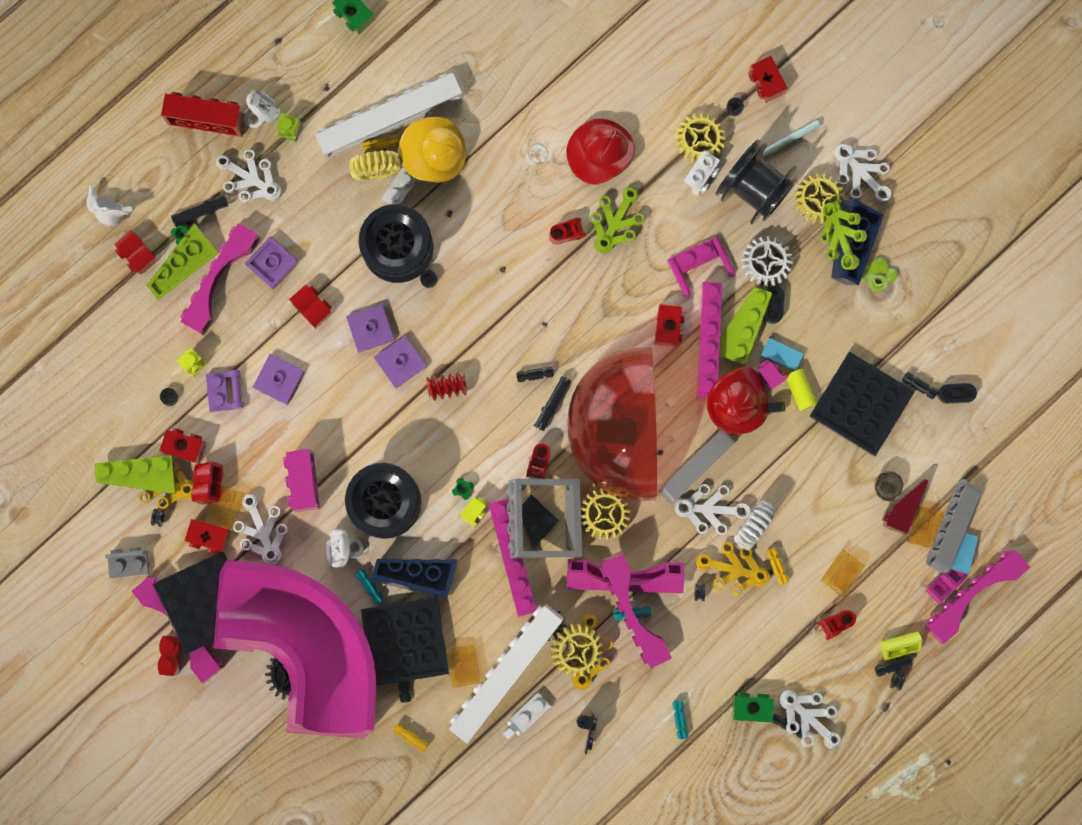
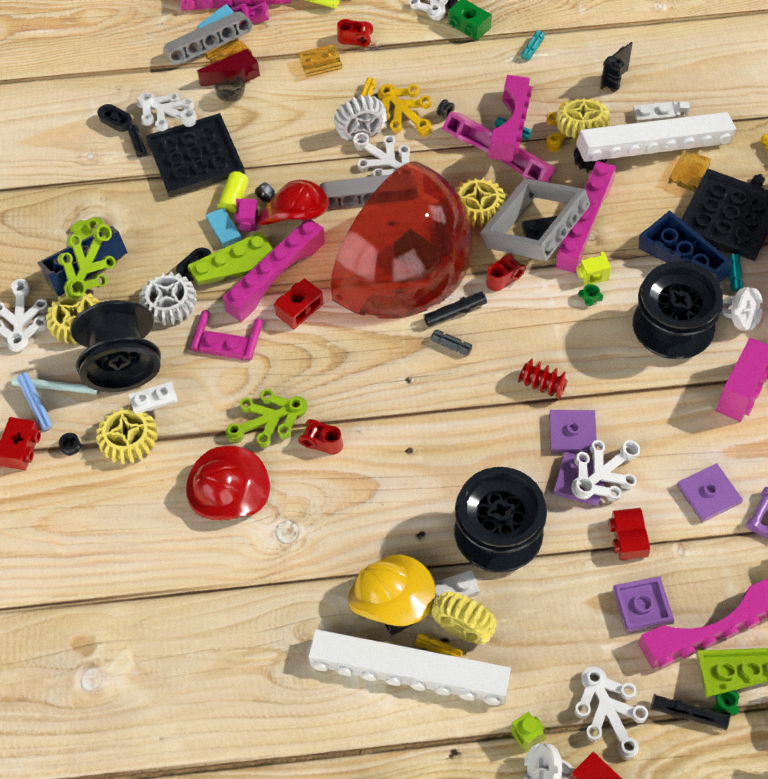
camera: 140 degrees left, 25 degrees down
(357, 339) = (602, 473): none -> white plant
(786, 116) = (34, 401): none -> light blue axle
(924, 428) = (147, 101): none -> white plant

